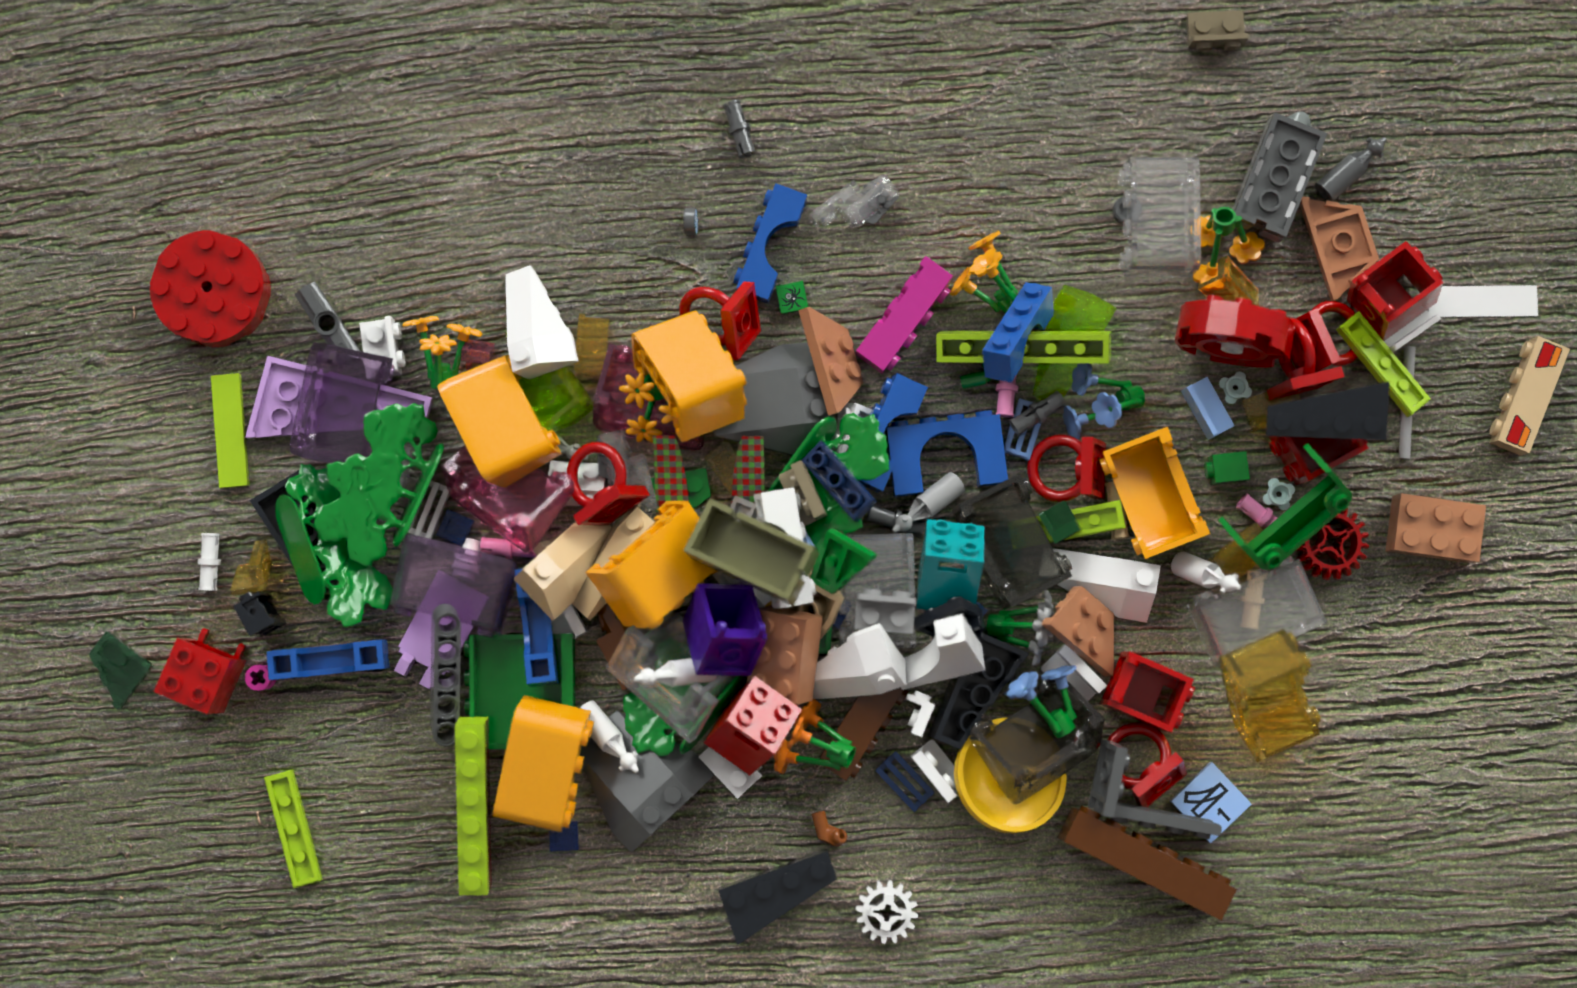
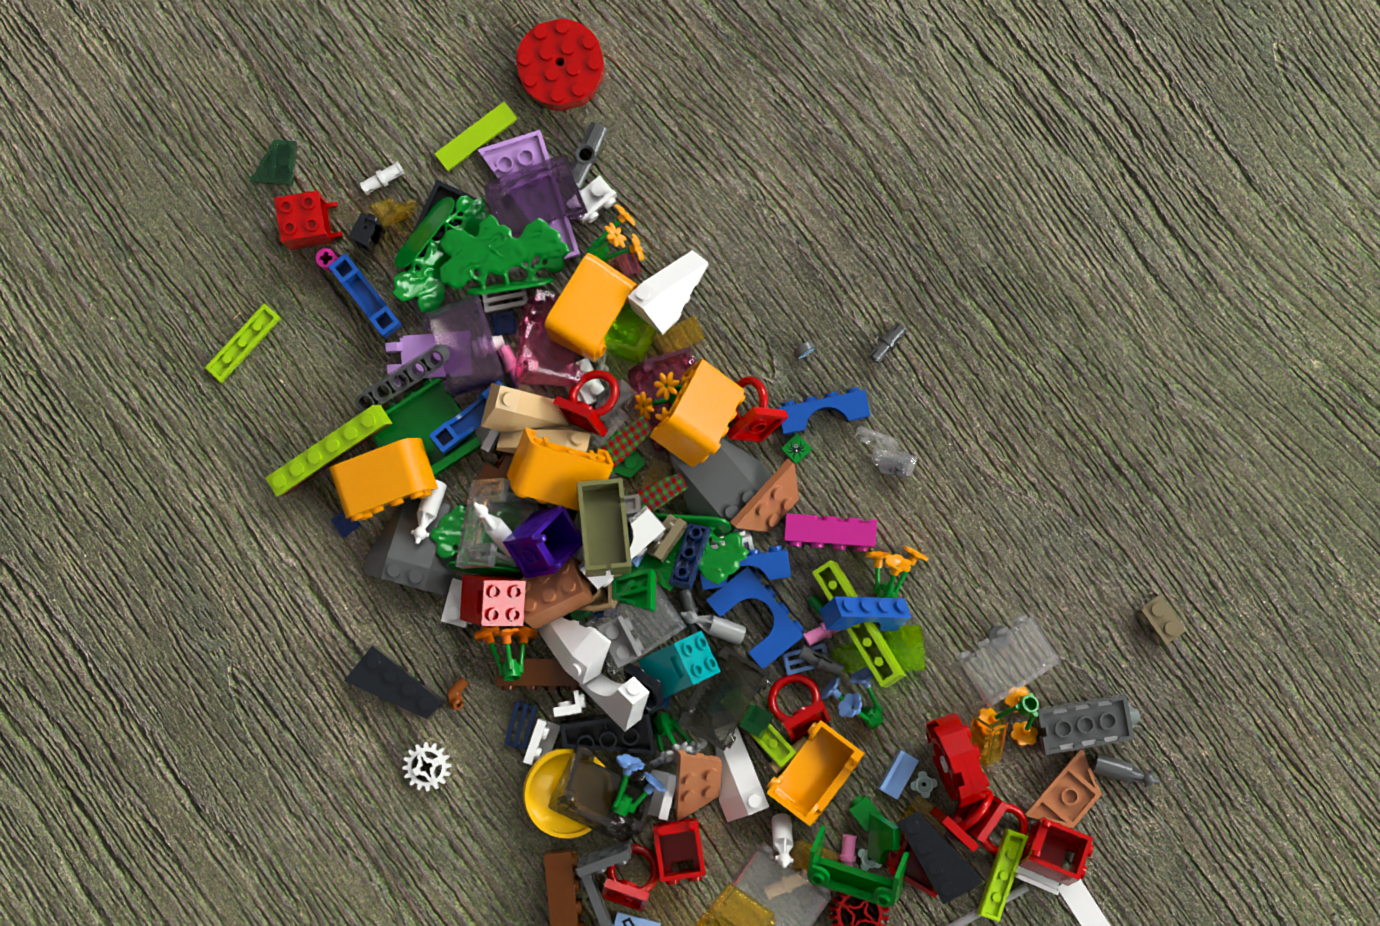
camera: 65 degrees right, 0 degrees up
(1269, 464) = (882, 838): none -> green tile

